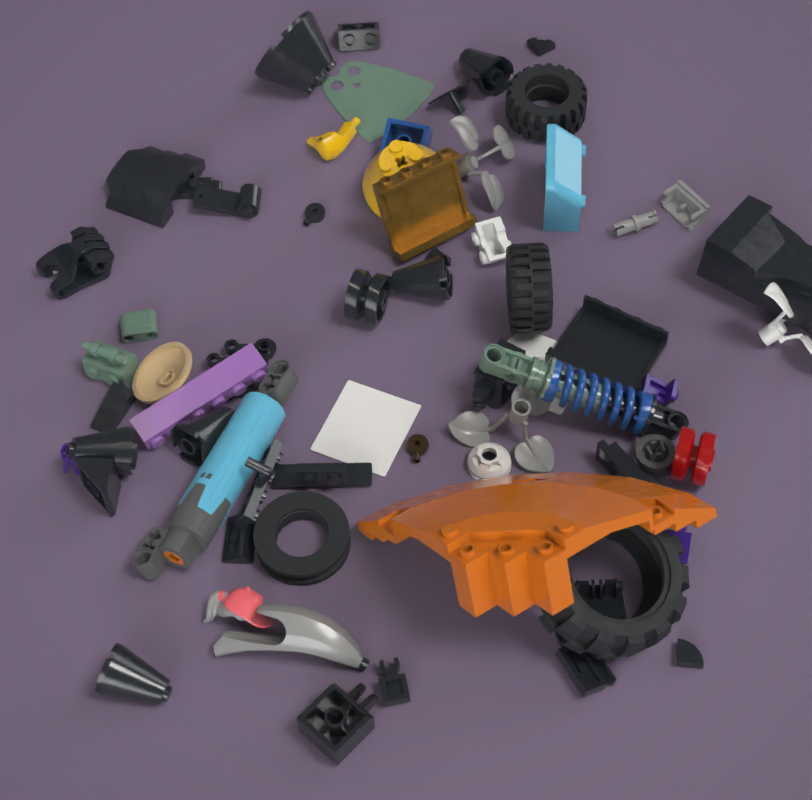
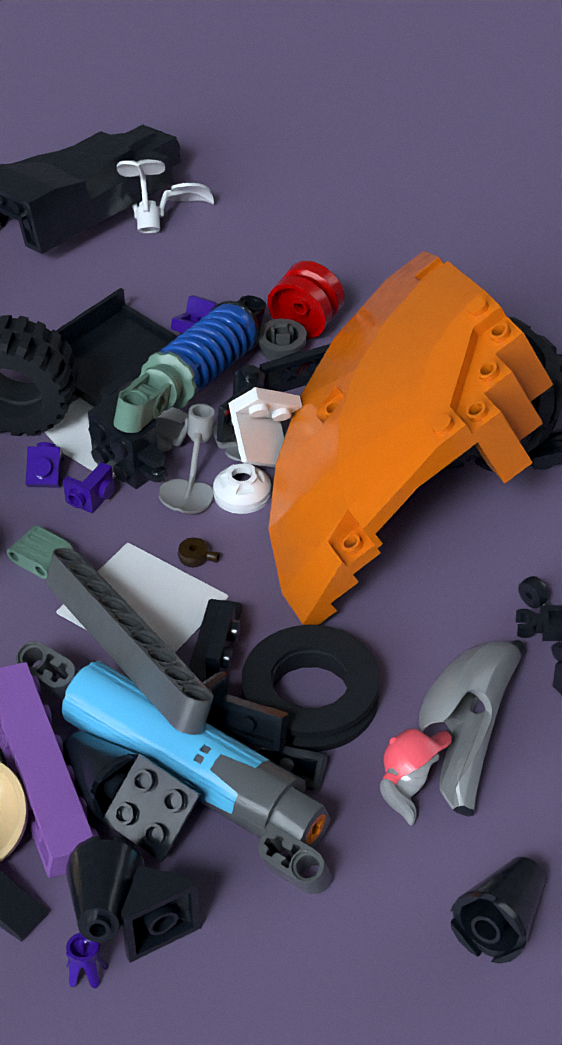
camera: 80 degrees left, 10 degrees down
(172, 466) = (151, 807): none -> hinge
(295, 419) = (130, 642): none -> dark grey beam
(395, 356) = (35, 550): none -> sand green piece
(419, 671) = (533, 592): none -> black piece
(457, 370) = (92, 491): none -> dark purple bracket
(475, 336) = (44, 465): none -> dark purple bracket
(528, 453) = (258, 424): none -> white bracket
(573, 445) = (244, 381): none -> black door

